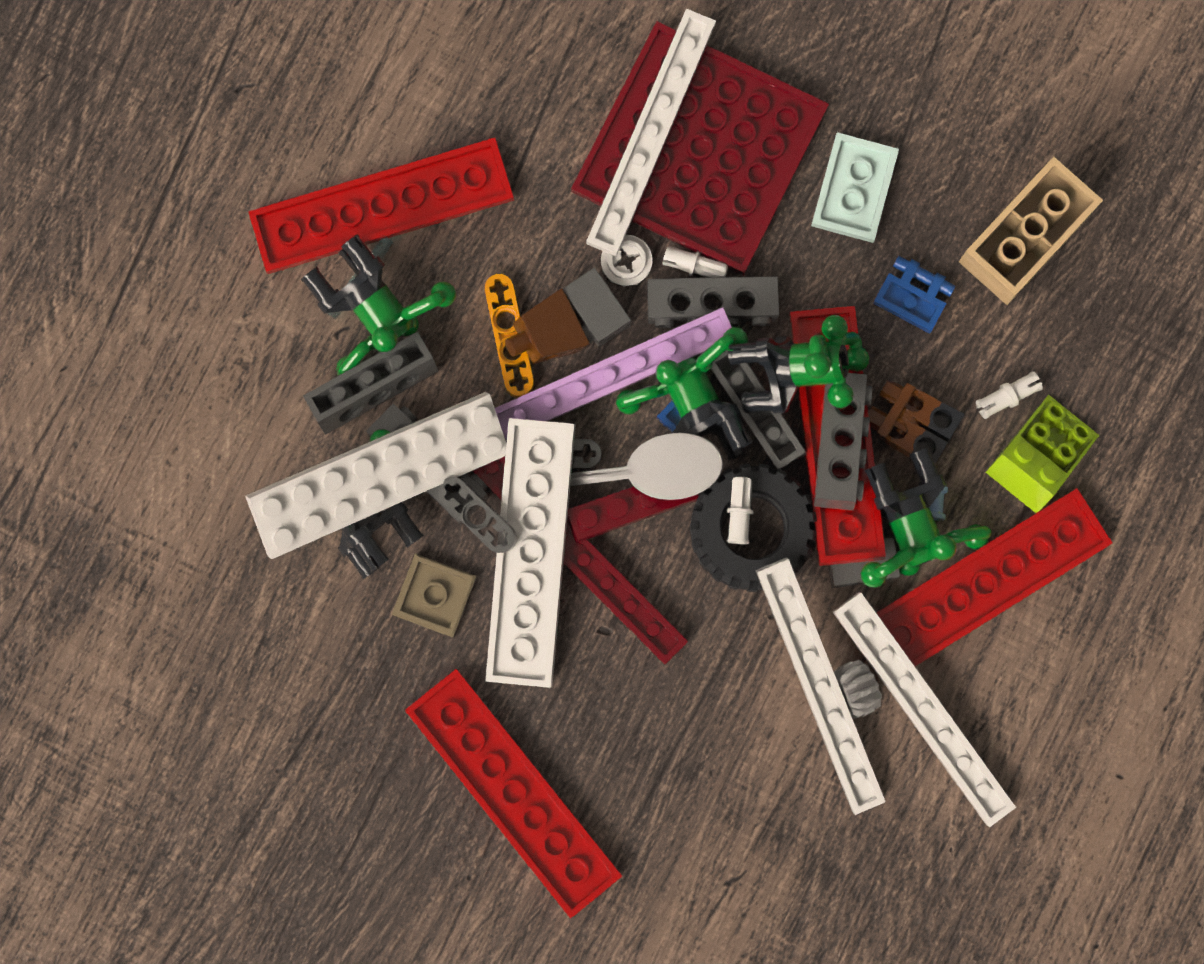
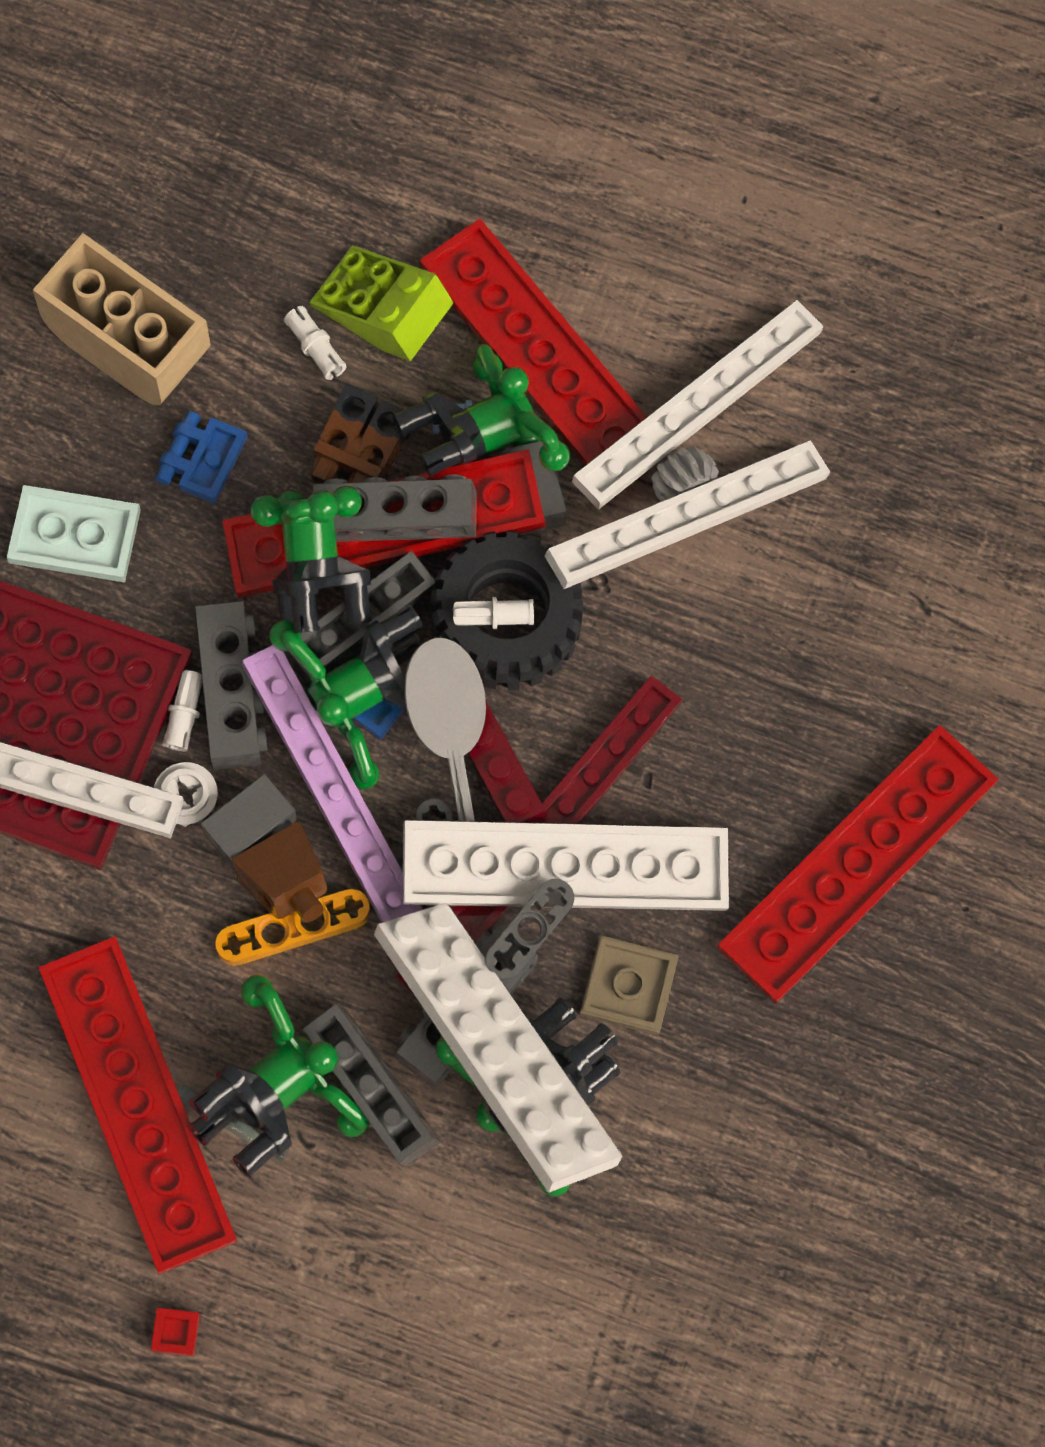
camera: 100 degrees left, 10 degrees down
(203, 222) = (175, 1332): none -> red plate

